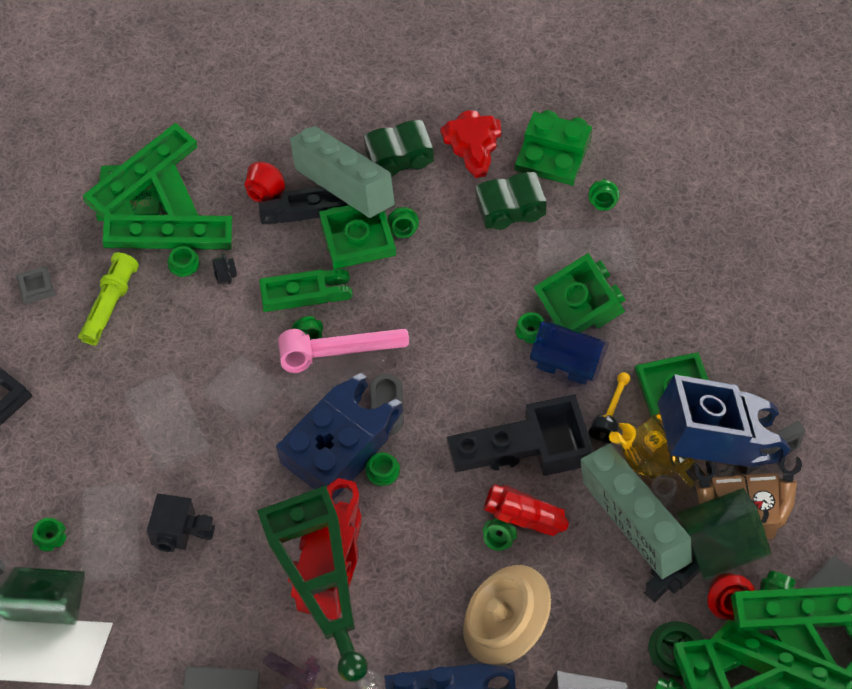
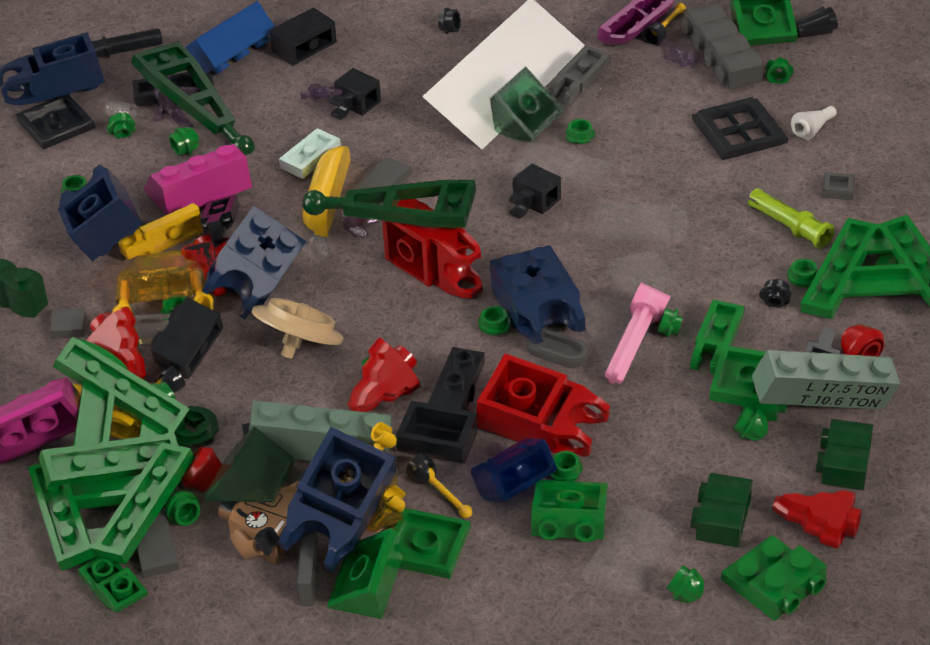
camera: 120 degrees right, 15 degrees down
(486, 371) = (540, 404): none -> red brick
(764, 379) = (367, 576): none -> green slope

